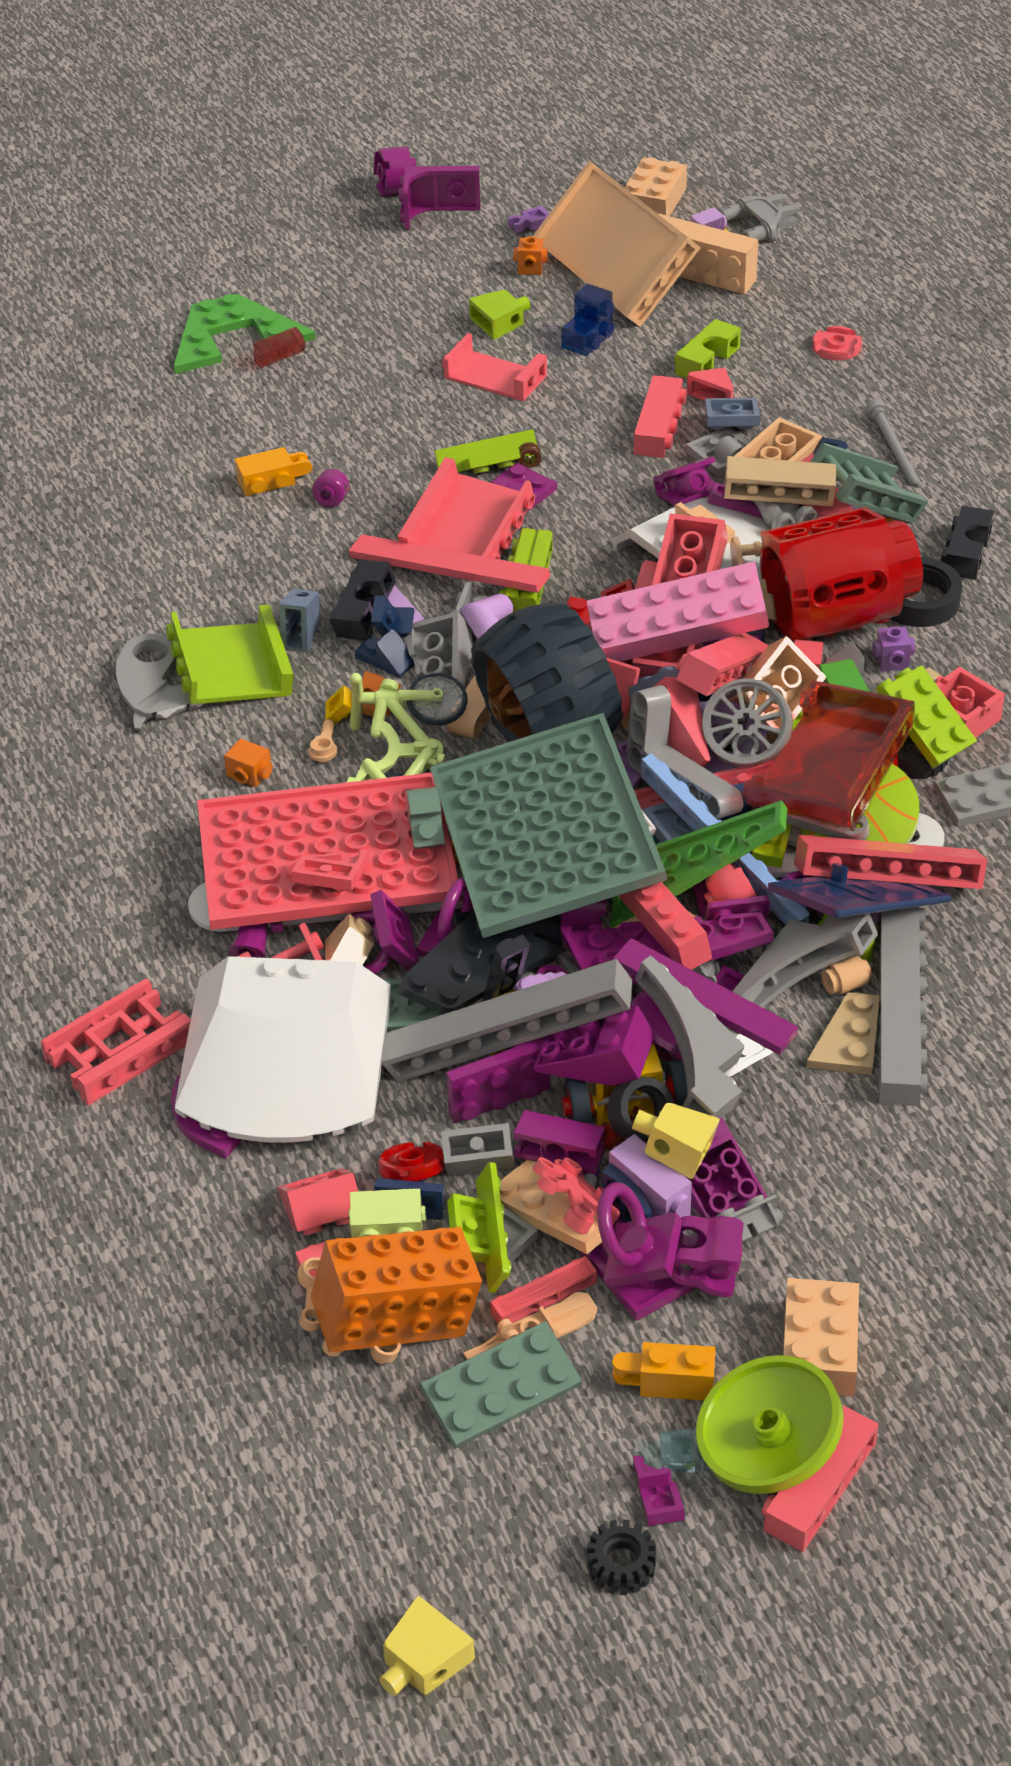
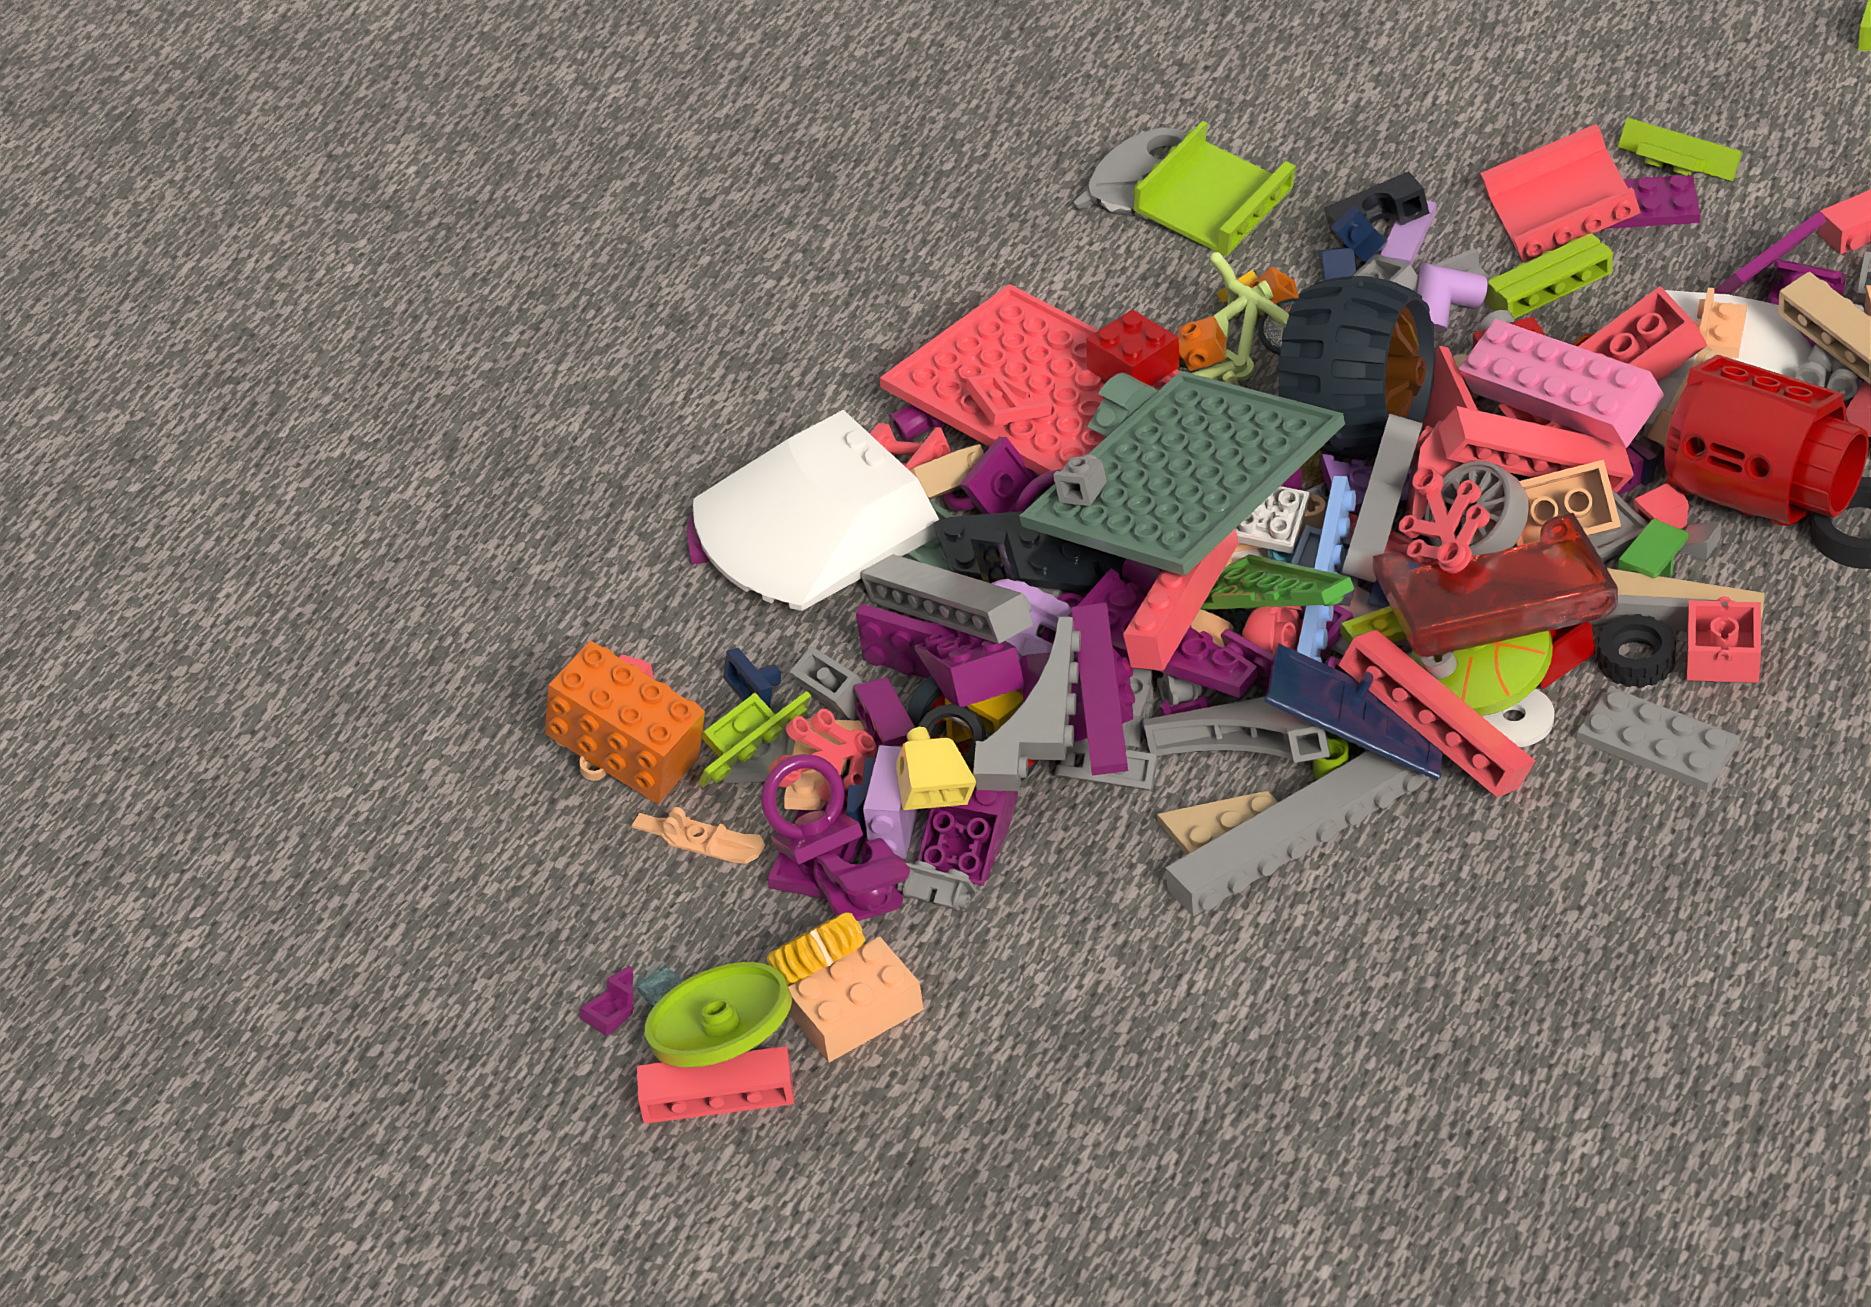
camera: 55 degrees right, 0 degrees up
(128, 1058) = (729, 445): coral fence -> none
(248, 763) = (1105, 285): orange brick -> none
(270, 470) = (1475, 52): light orange brick -> none
(298, 610) = (1305, 192): sand blue torso -> none
(318, 1200) = (693, 636): coral slope -> none
(322, 747) = (1181, 311): light nougat plate -> none
(331, 485) = (1500, 98): magenta head -> none
(372, 780) = (1133, 347): none -> red brick
(385, 1212) = (696, 677): yellowish green brick -> none
(402, 746) = (1201, 343): none -> orange brick
(411, 1162) = (778, 656): red tile -> none
(424, 1650) = (344, 962): light yellow torso -> none
(450, 563) = (1489, 225): coral tile -> none
(492, 373) = (1804, 77): coral panel -> none
(495, 865) = (1087, 472): none -> light grey brick
(500, 1384) = (623, 849): sand green plate -> none
(531, 449) = (1712, 174): reddish brown bush -> none
(544, 1291) = (733, 814): coral piece -> none
(621, 1576) = (528, 1002): black tyre -> none
(645, 479) = (1768, 257): none -> magenta tile
(667, 1370) = (728, 929): light orange brick -> none
(747, 742) = (1454, 552): none -> coral plant
(760, 1320) = (817, 948): none -> yellow gear
(846, 975) = (1281, 775): light nougat brick -> none
(893, 643) = (1751, 552): medium lavender brick -> none
(936, 724) = (1653, 619): lime bracket -> none

